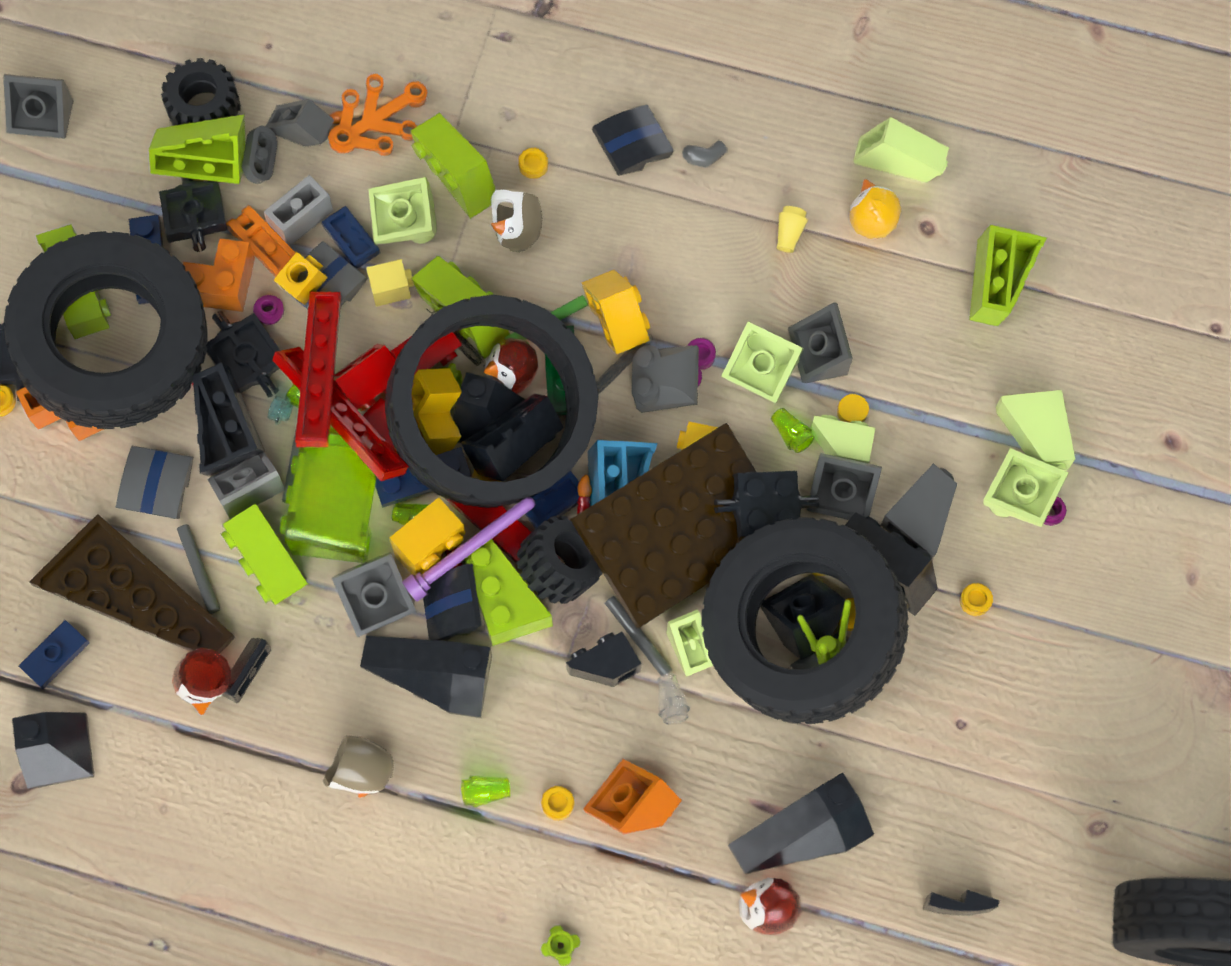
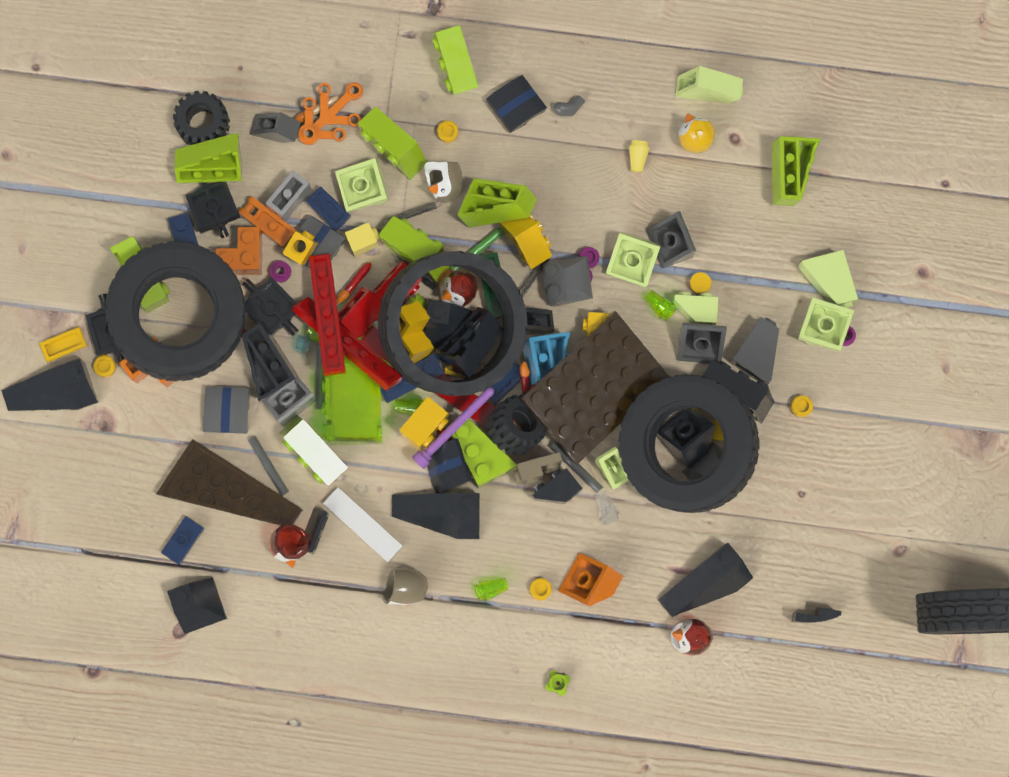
camera: 10 degrees left, 10 degrees up
(37, 106) = (84, 143): dark grey slope -> none
(259, 160) = (251, 155): dark grey plate -> none
(316, 671) = (362, 524): none -> white tile
(367, 339) = (344, 294): none -> red piece
(373, 594) = (392, 466): dark grey slope -> none
(474, 261) = (416, 214): none -> dark grey piece
(557, 70) = (454, 60): none -> lime wedge
(570, 626) = (530, 472): none -> dark tan plate
(581, 256) = (495, 202): none -> lime wedge
(614, 424) = (539, 321): none -> black slope
(764, 499) = (650, 363): black plate -> none
(827, 646) = (706, 459): lime plant -> none

